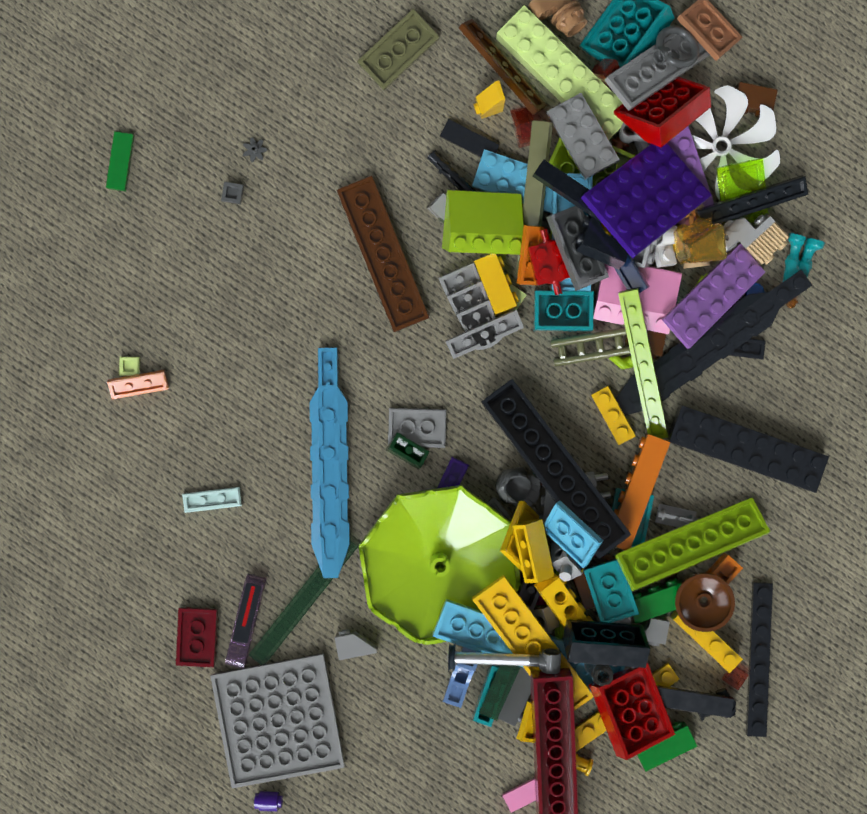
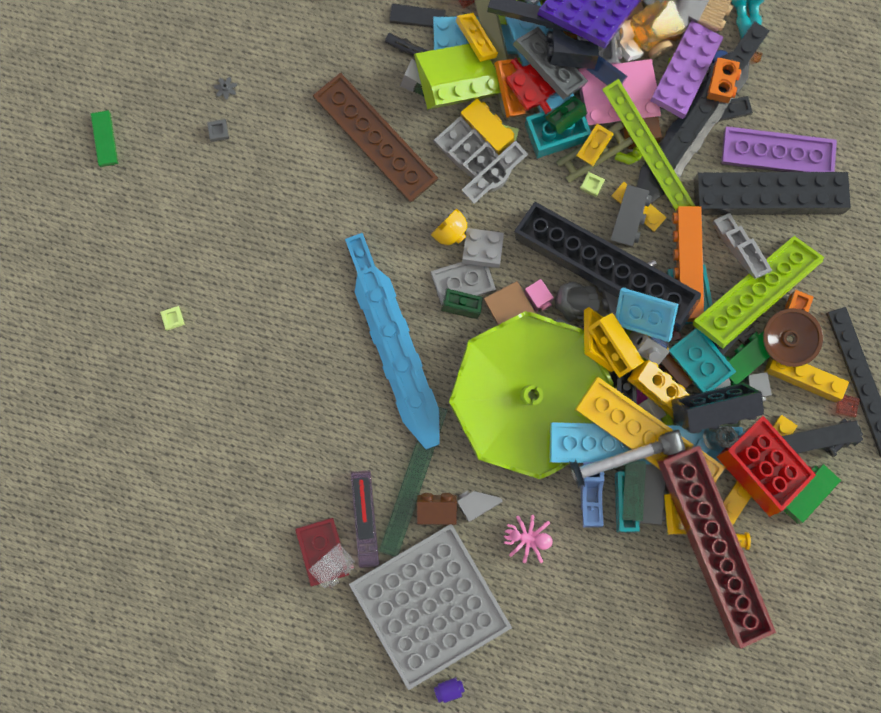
camera: 25 degrees left, 10 degrees down
(138, 384) = (186, 331): tile -> none
(200, 656) = (332, 566): none -> clear brick
(212, 499) = (292, 415): light aqua tile -> none
(314, 637) = (437, 508): none -> reddish brown brick
(391, 694) = (531, 539): none -> bright pink animal
(422, 375) = (451, 229): none -> yellow cylinder
(447, 403) = (483, 248): none -> light grey plate
(451, 469) = (508, 303): none -> medium nougat tile
(483, 469) = (539, 295): none -> bright pink brick
(517, 190) = (476, 37): none -> yellow plate
(520, 795) = (693, 593): bright pink tile -> none
(575, 303) = (566, 114): none -> dark green slope
(577, 376) = (592, 184): none -> yellowish green tile
(592, 342) = (595, 144): none -> yellow plate
(600, 424) = (631, 215): none -> dark grey brick
(674, 516) = (728, 278): light grey hinge -> none
(695, 492) = (741, 246): none -> light grey slope
(740, 318) = (720, 79): none -> orange brick
(772, 408) = (777, 151): none -> medium lavender plate

